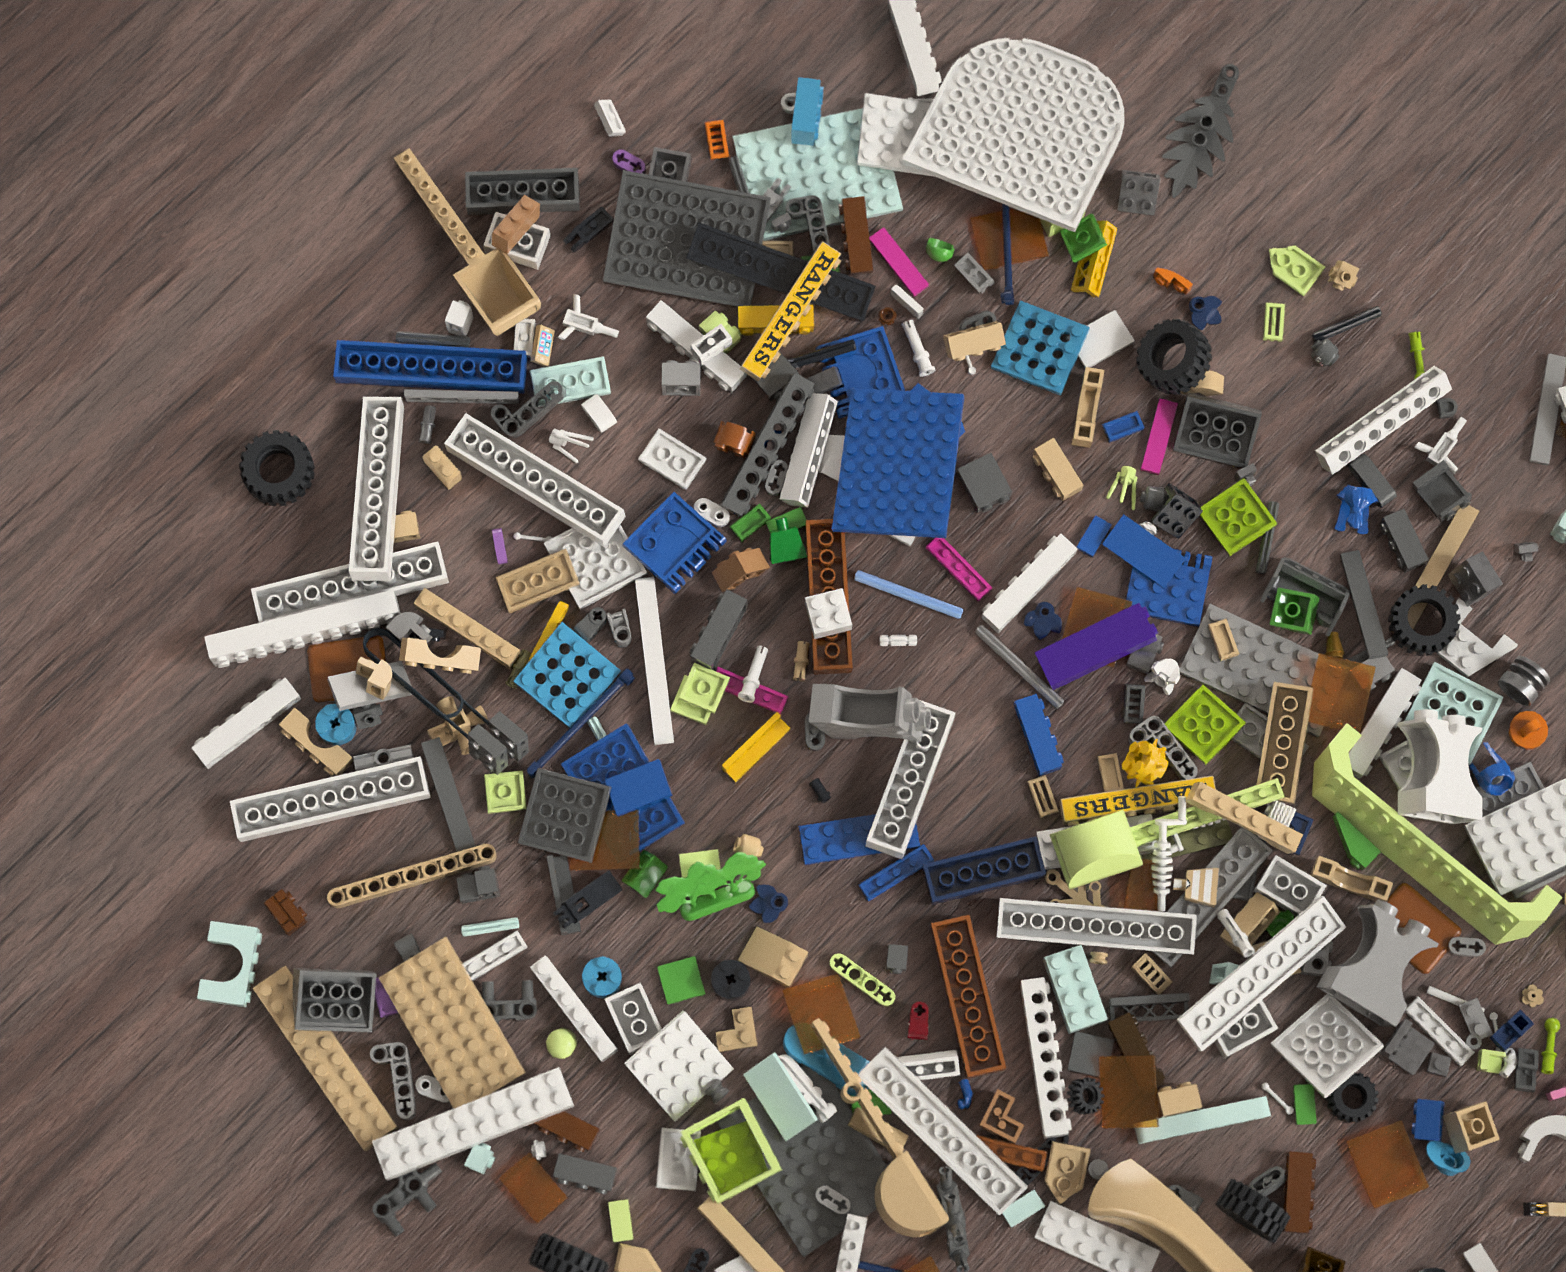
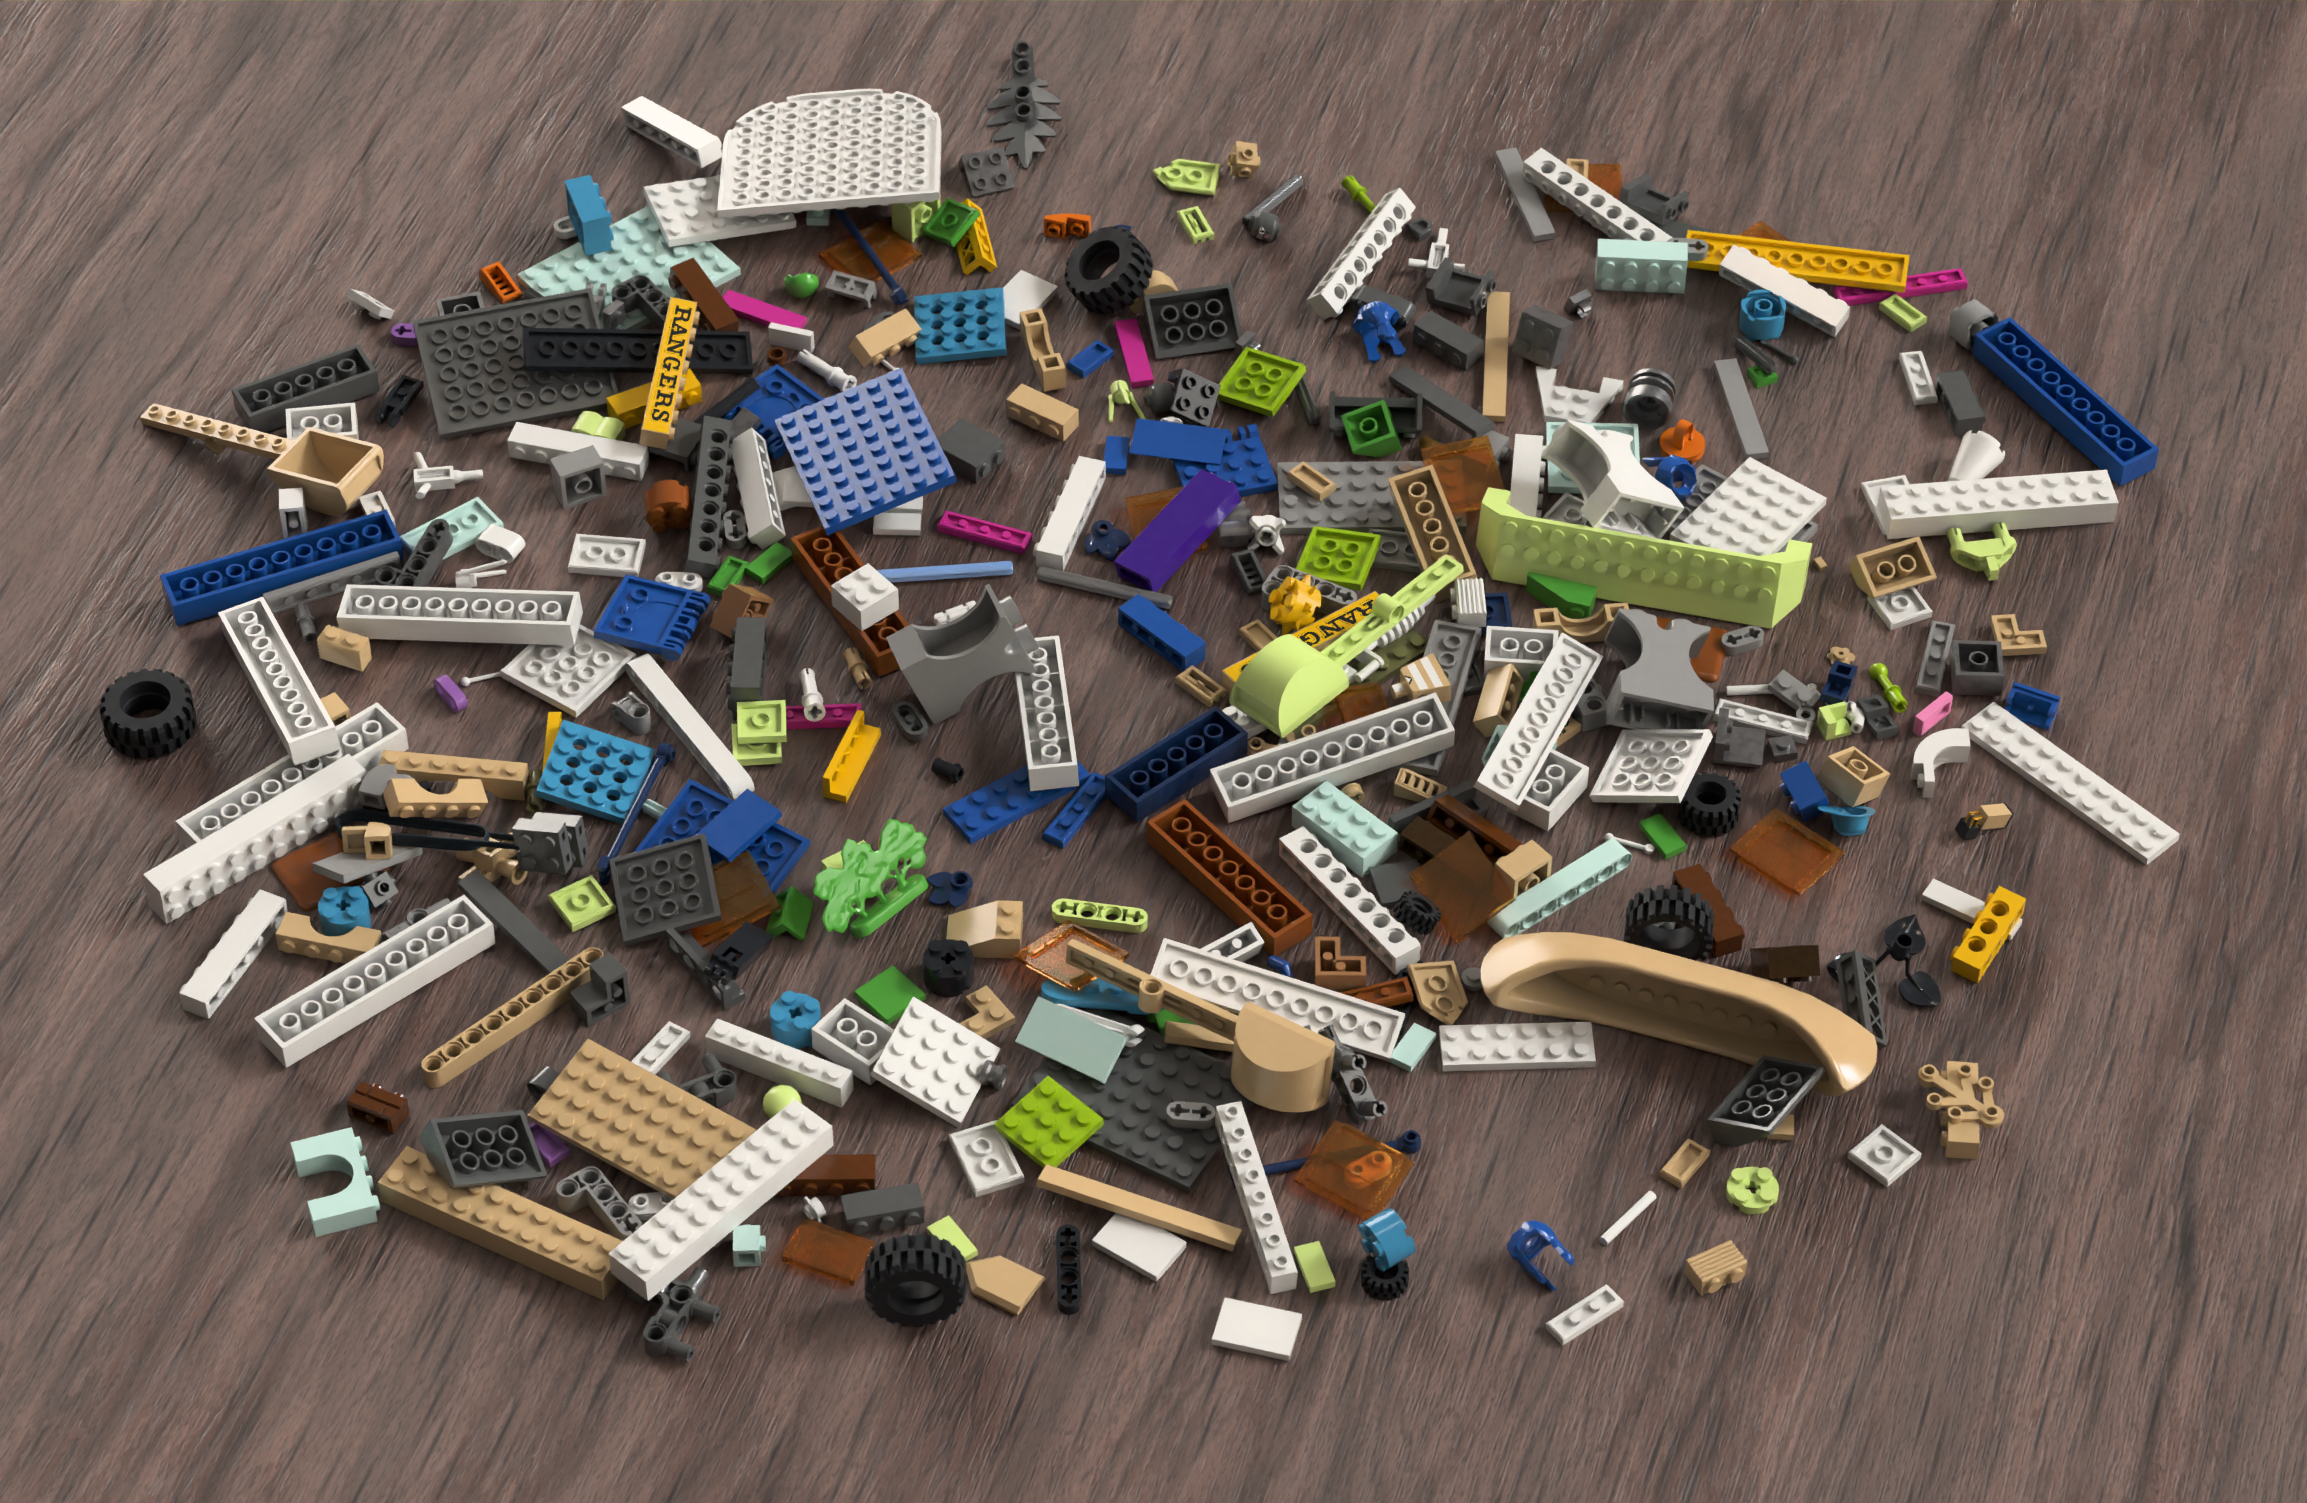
camera: 25 degrees left, 30 degrees down
(491, 926) = (635, 1030): light aqua axle -> none
(515, 224) = (316, 401): medium nougat brick -> none
(537, 580) = (512, 705): tan tile -> none
(542, 345) = (401, 509): tan tile -> none
(588, 627) = (599, 715): dark grey piece -> none
(696, 1158) = (1065, 1074): yellowish green window -> none
(711, 344) = (596, 426): white brick -> none
(785, 543) = (779, 572): green torso -> none
(897, 958) = (1126, 878): dark grey brick -> none
(918, 1024) = (1187, 923): dark red piece -> none
(1162, 859) = (1366, 670): white piece -> none
(1166, 1043) = (1457, 820): none -> reddish brown brick
(1228, 808) = (1387, 584): tan arch -> none
(1238, 937) = (1495, 703): white pin -> none
(1413, 640) = (1512, 405): black tyre -> none

